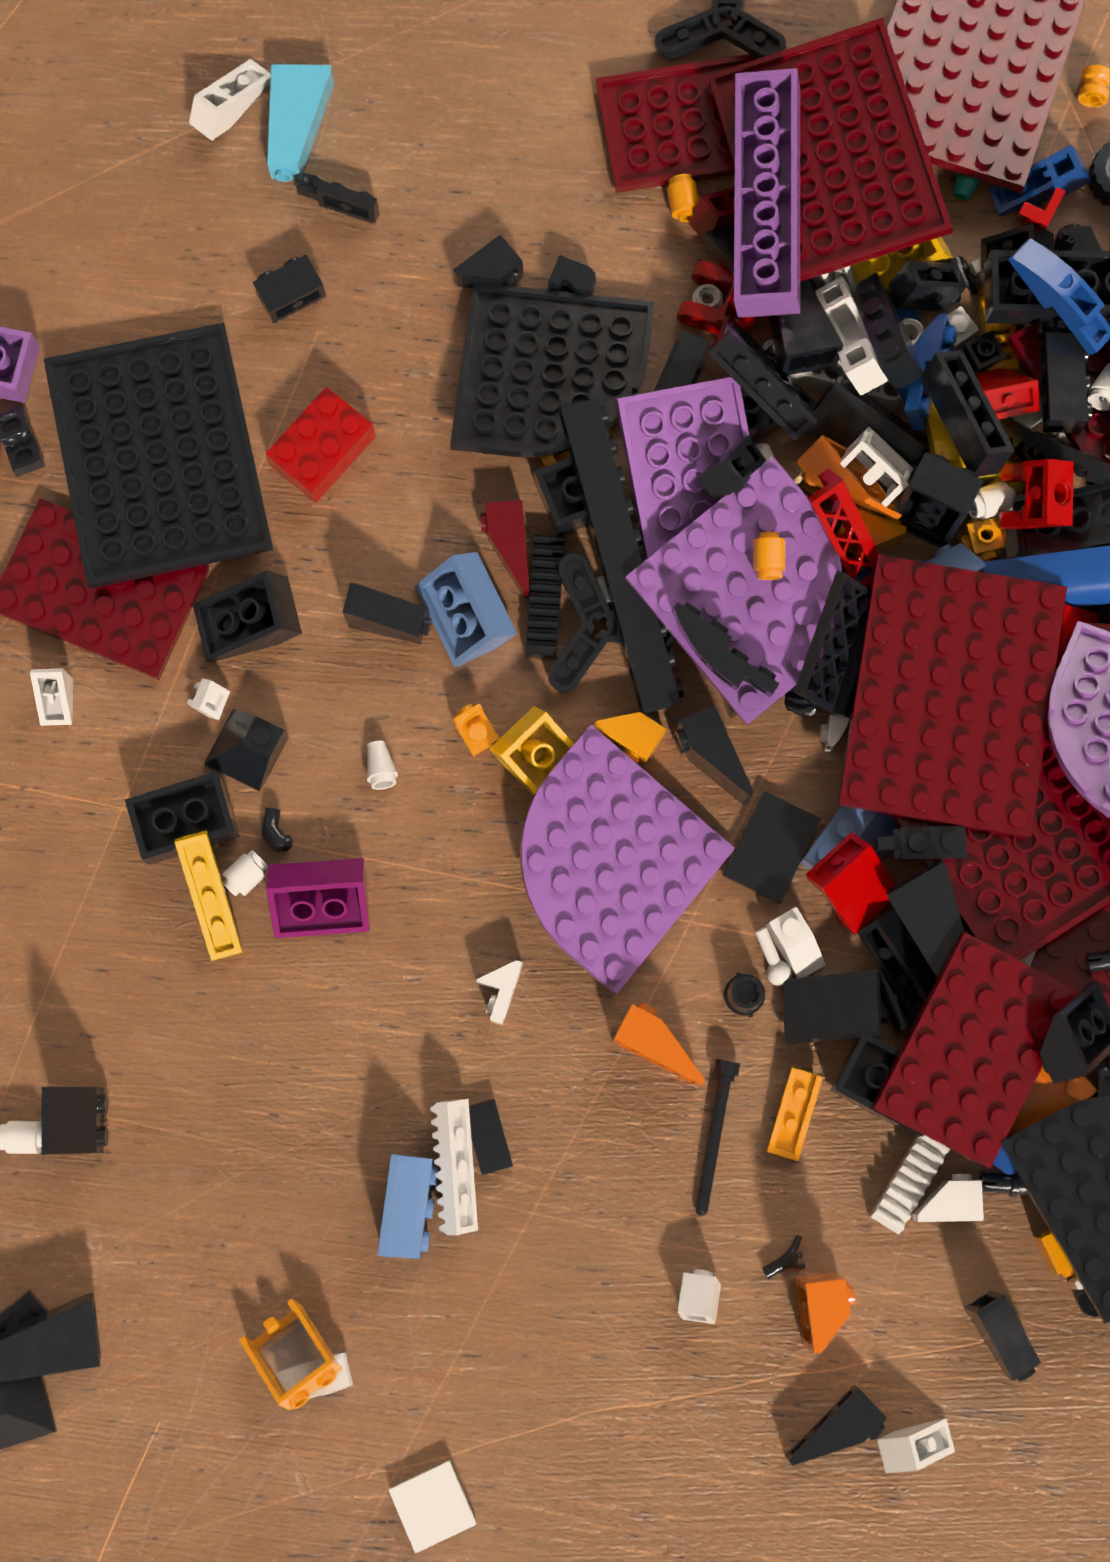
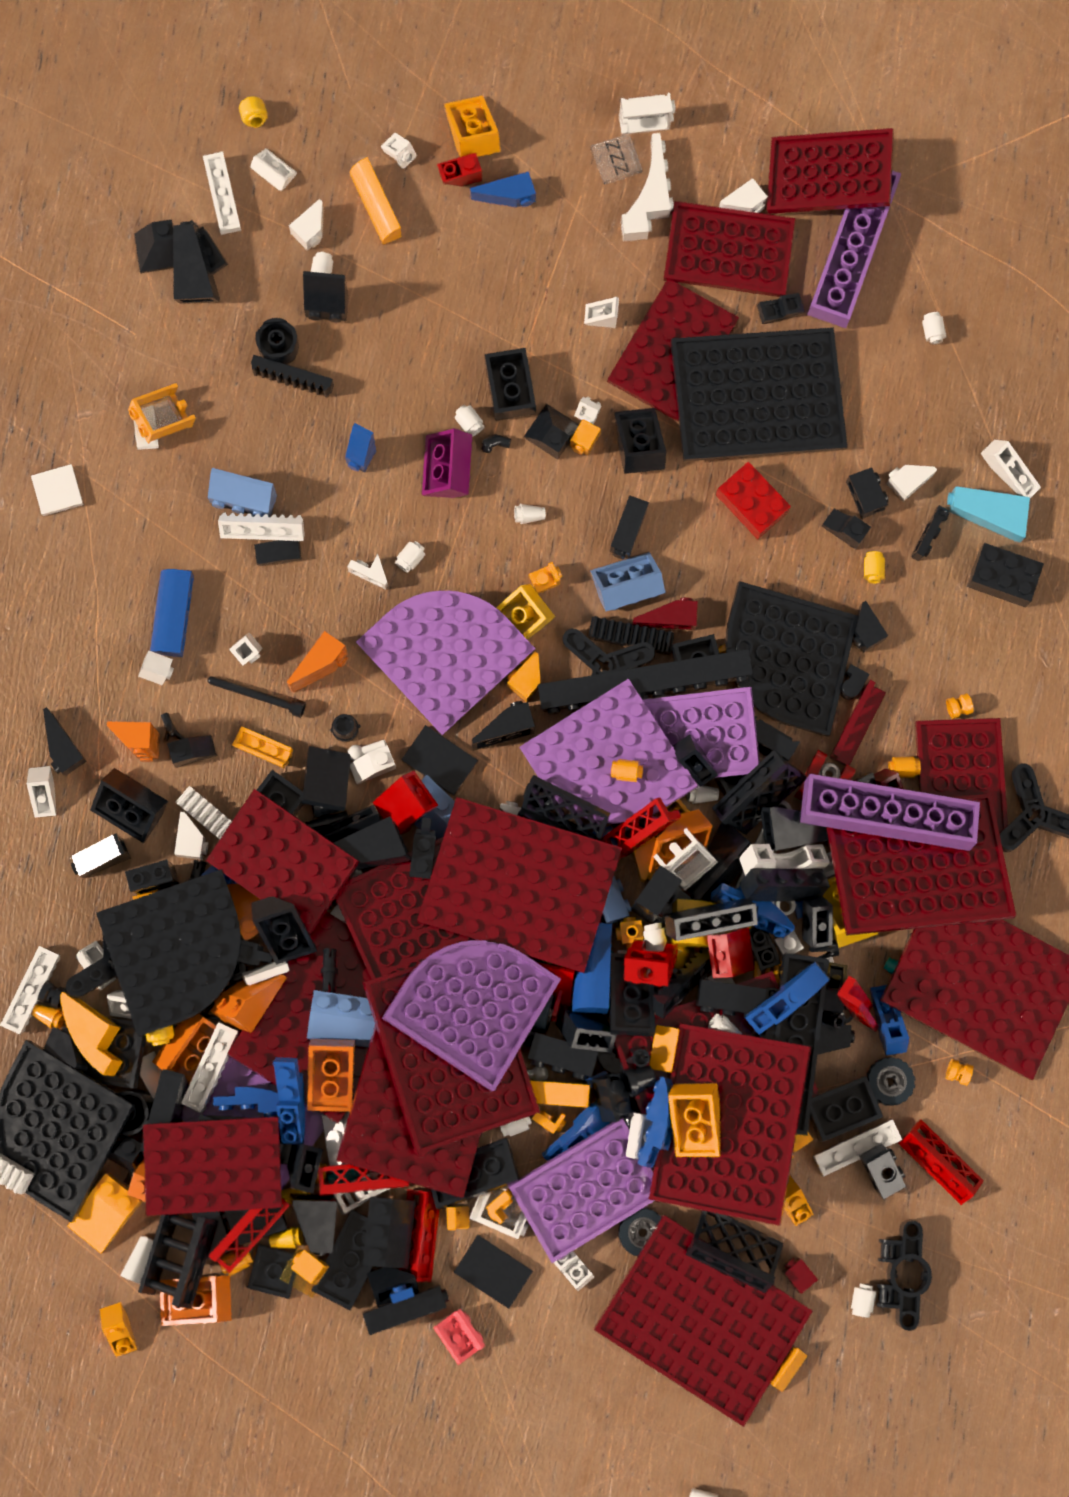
camera: 90 degrees right, 0 degrees up
(28, 221) = (934, 328): none -> white brick
(137, 1176) = (274, 330): none -> black brick
(201, 1158) = (292, 374): none -> black gear
(208, 895) = (456, 394): yellow plate -> none
(253, 697) = (584, 437): none -> light orange brick
(263, 233) = (909, 479): none -> white slope
(315, 1030) = (360, 448): none -> blue slope
(345, 311) = (847, 528): none -> black arch
(387, 90) = (1005, 575): none -> black brick
(399, 268) = (874, 567): none -> yellow brick
(469, 932) = (410, 556): none -> white brick
(584, 132) = (959, 706): none -> light orange wheel
(607, 1288) = (172, 612): none -> blue brick
(632, 269) = (857, 724): none -> dark red fence
(650, 1161) = (246, 649): none -> white brick
(710, 644) = (572, 724): black slope -> none
(816, 1221) = (191, 750): none -> black slope
(915, 1305) = (128, 805): none -> black slope
(1033, 1246) = (152, 877): none -> black window

